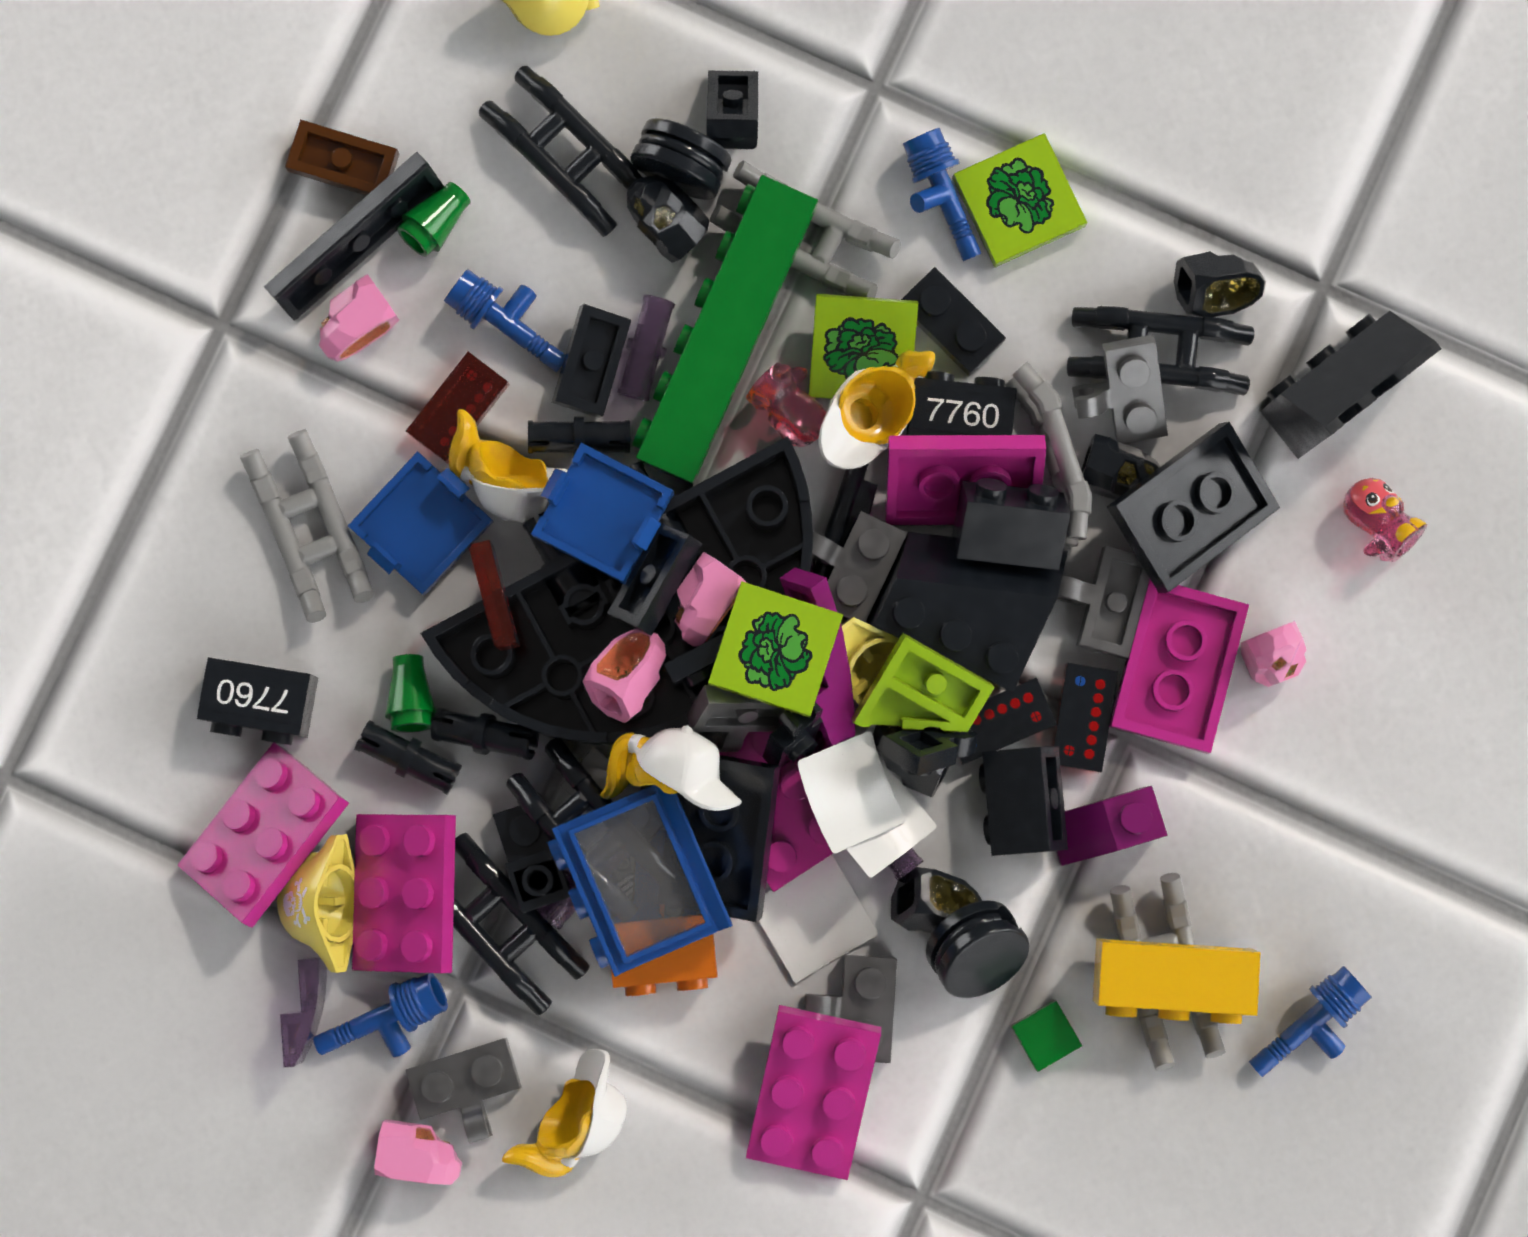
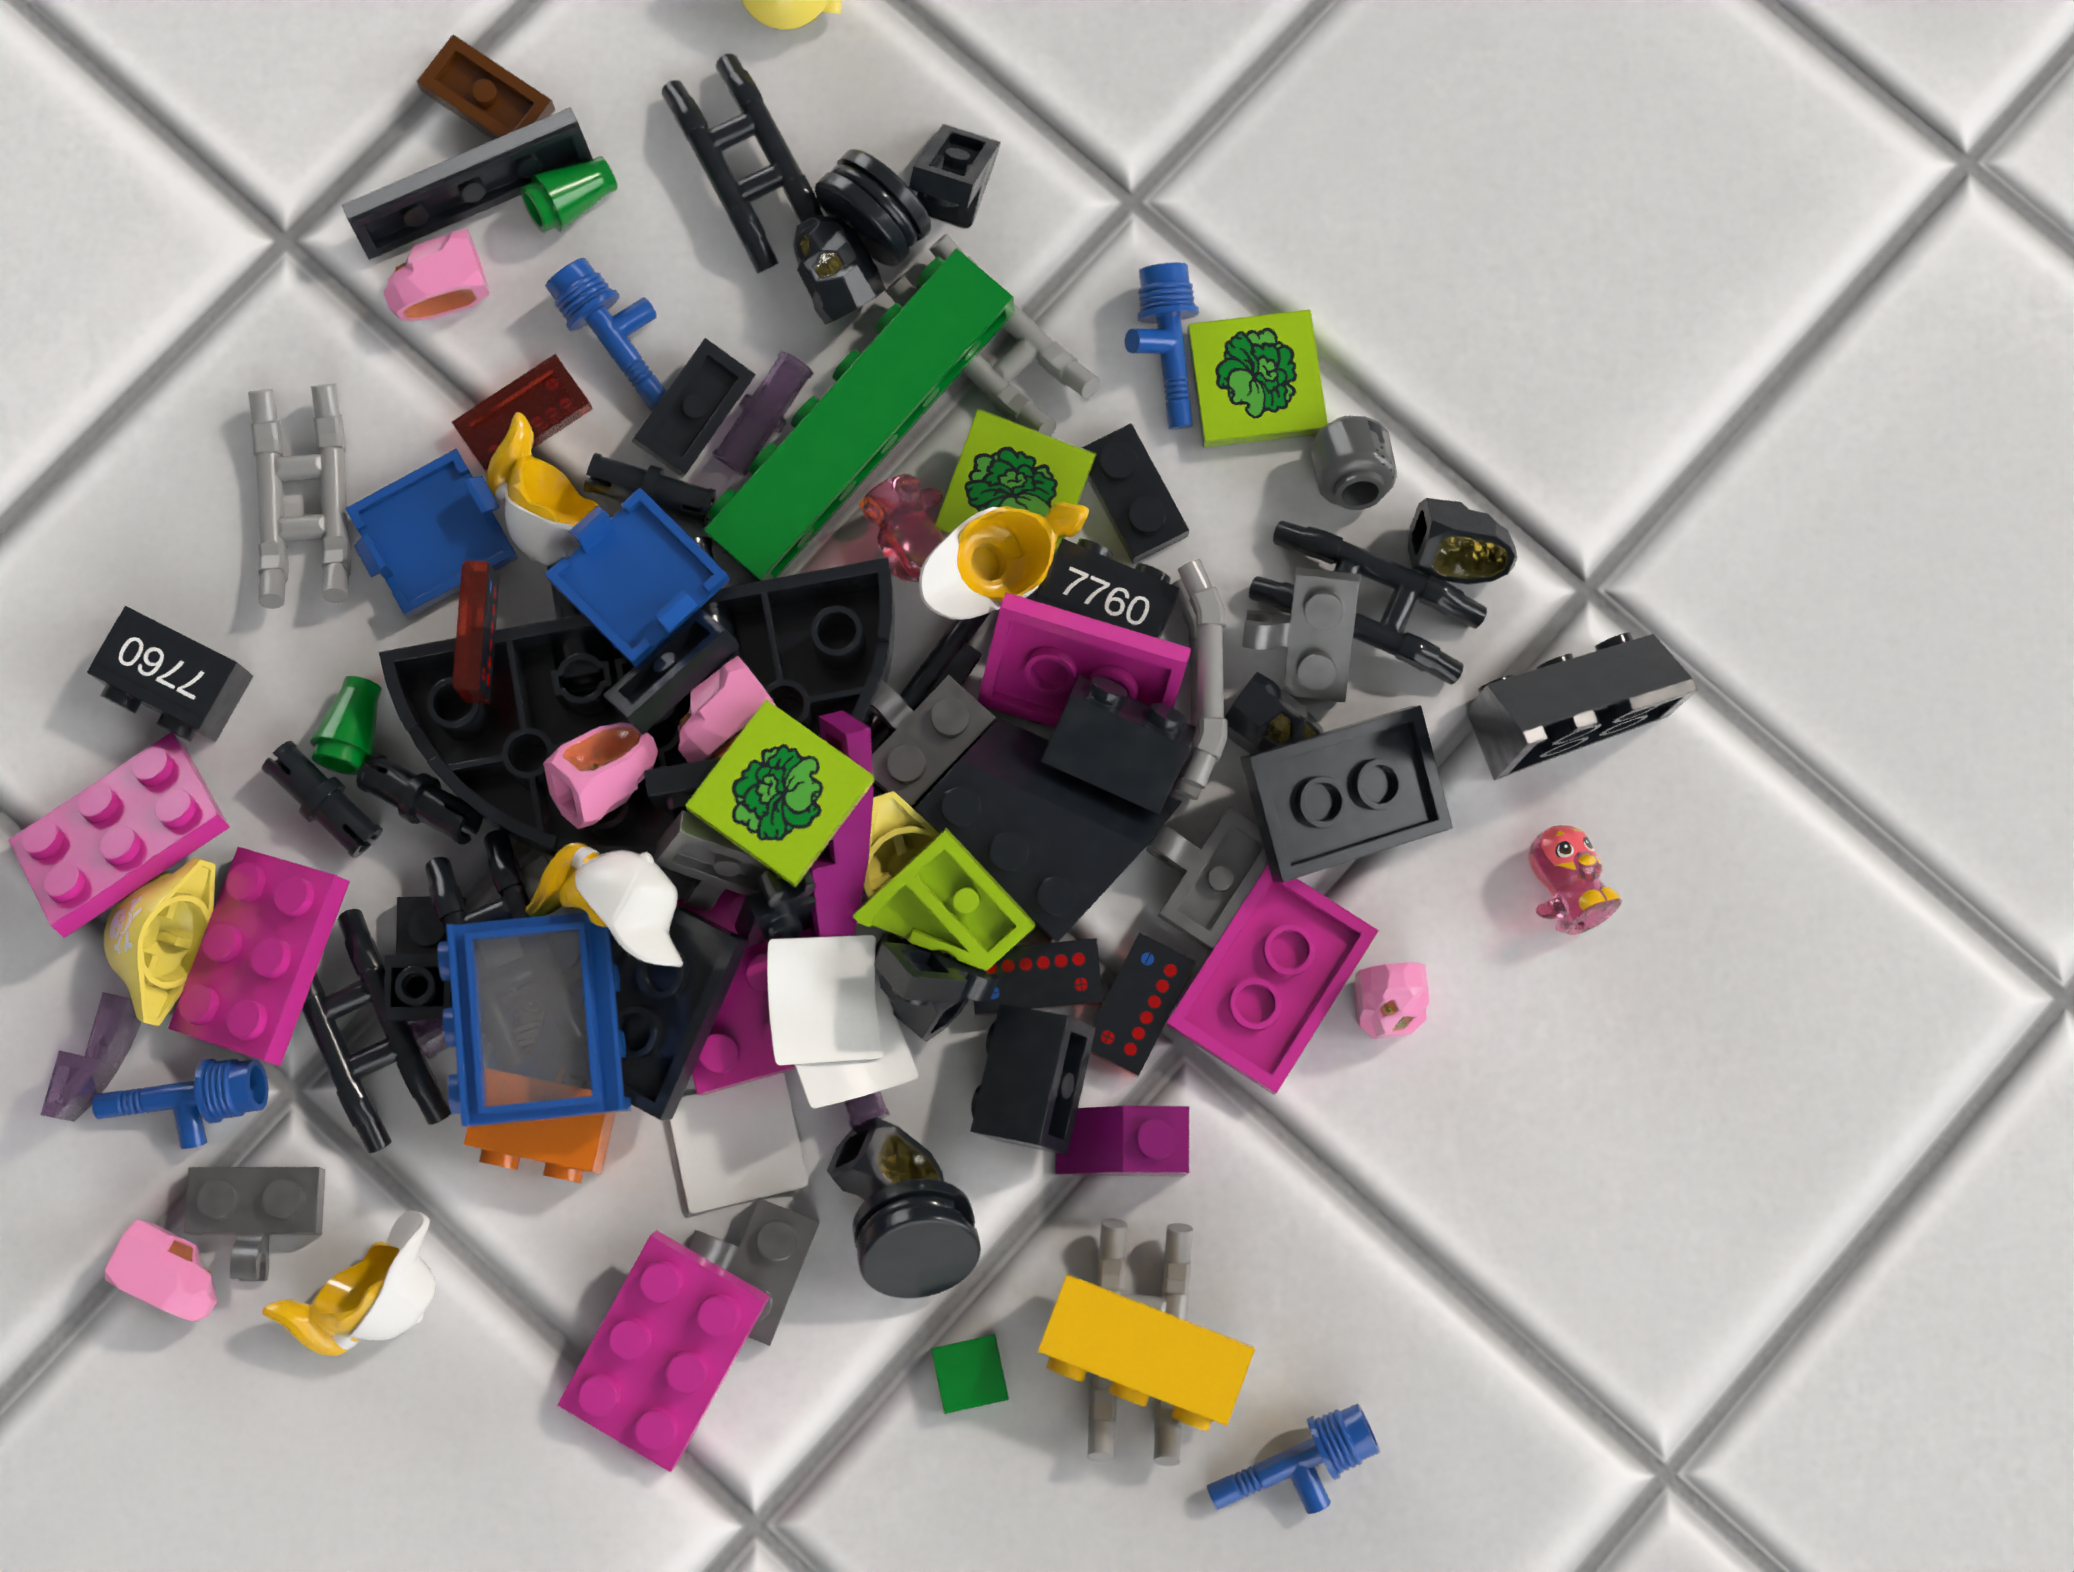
camera: 20 degrees right, 5 degrees down
(1117, 245) = (1353, 462): none -> dark grey head

